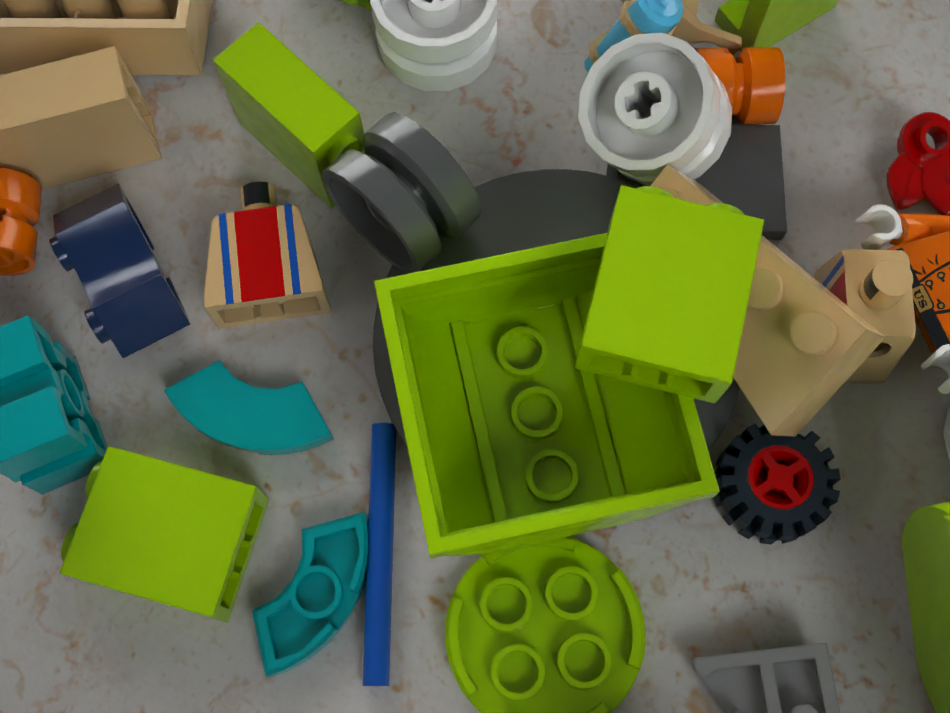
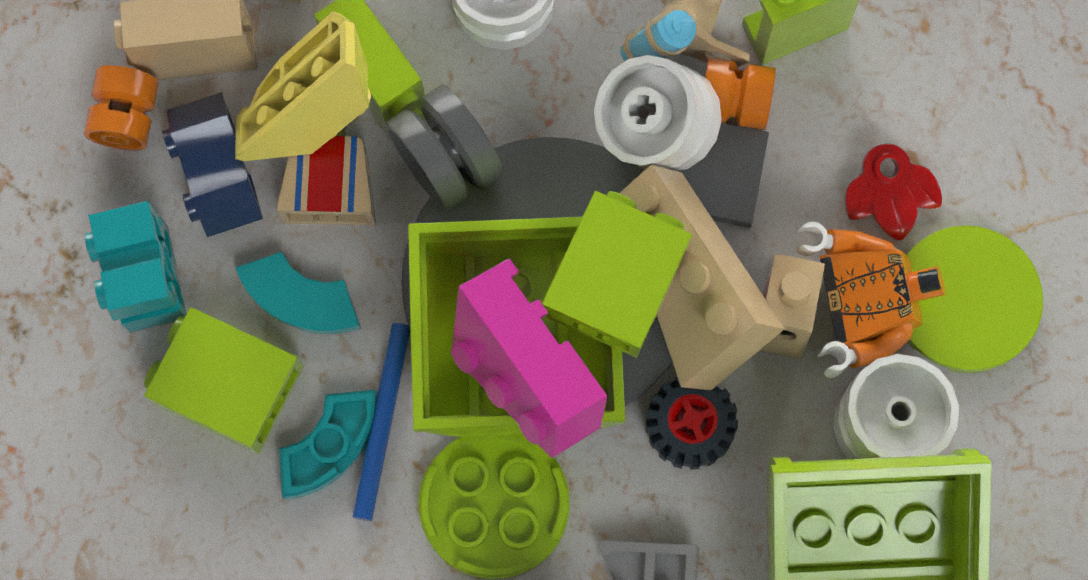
camera: 10 degrees right, 5 degrees up
(223, 154) = (306, 95): none -> light yellow wedge
(570, 435) = (522, 364): none -> dark pink wedge

